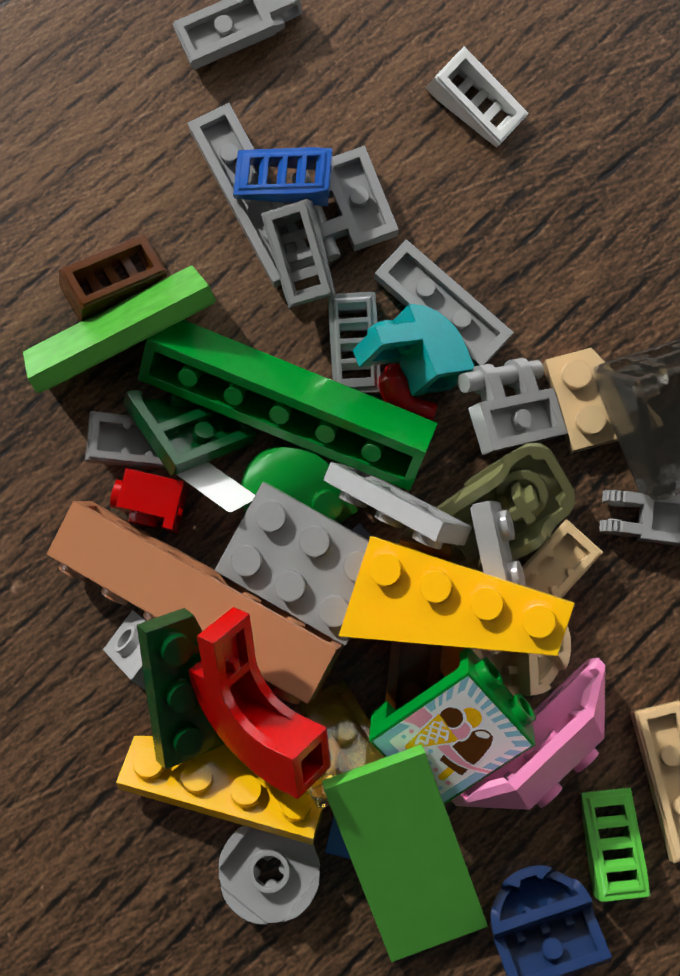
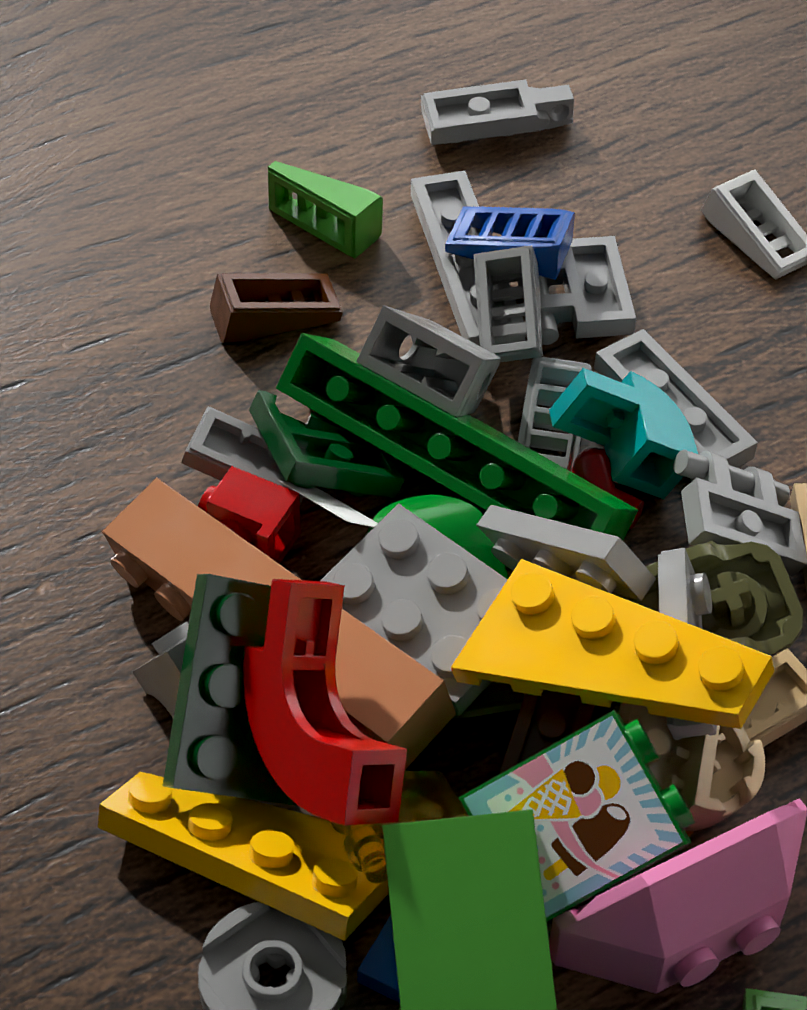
camera: 15 degrees right, 30 degrees down
(116, 328) = (261, 333): bright green tile -> none
(134, 172) = (342, 212): none -> bright green slope
(254, 335) = (437, 366): none -> light grey torso

